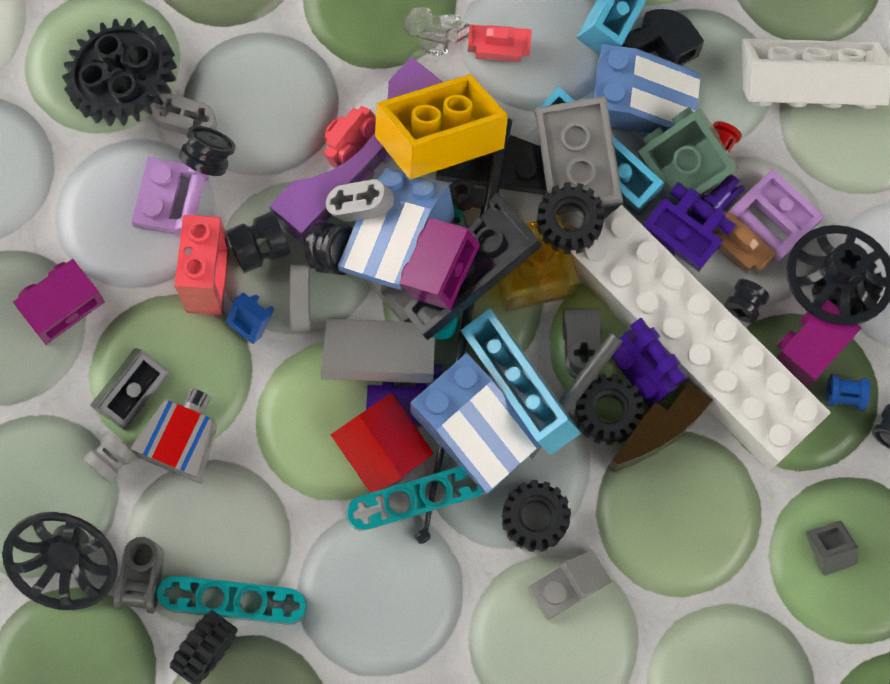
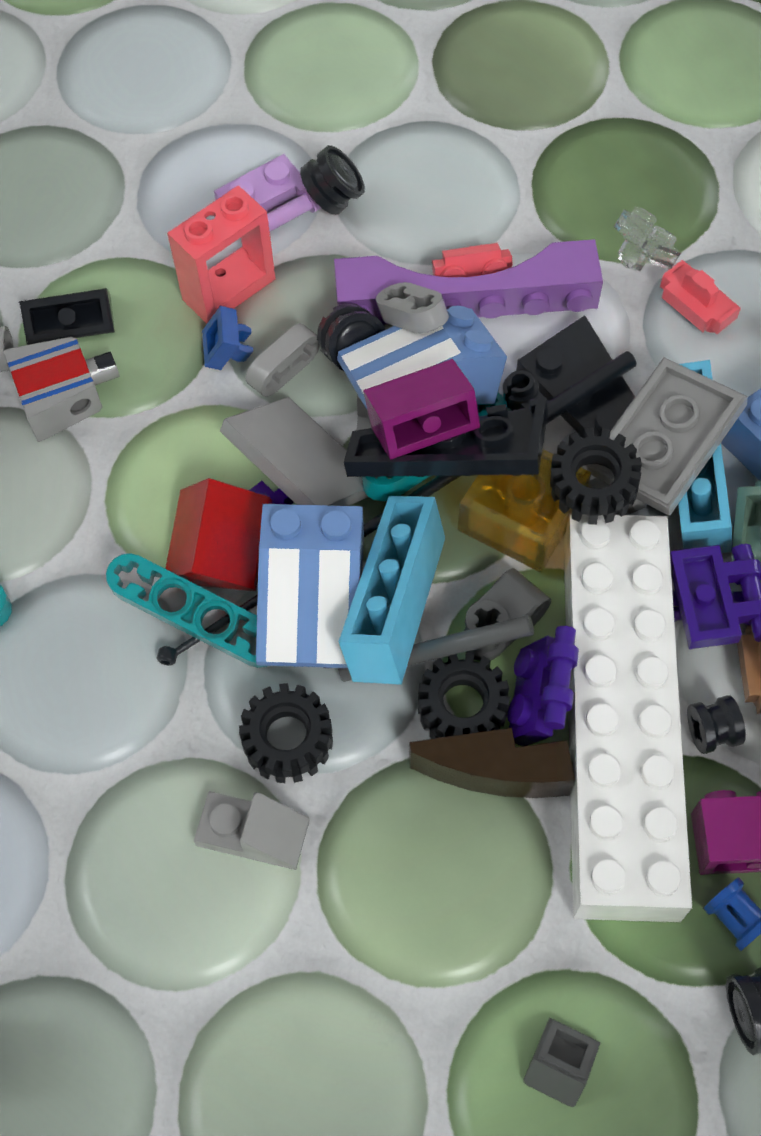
camera: 50 degrees right, 10 degrees down
(58, 300) = (87, 202): magenta brick -> none
(130, 47) = (308, 84): black gear -> none
(186, 108) = (355, 144): light grey beam -> none
(244, 243) = (295, 284): black wheel -> none
(440, 126) = (554, 304): yellow brick -> none

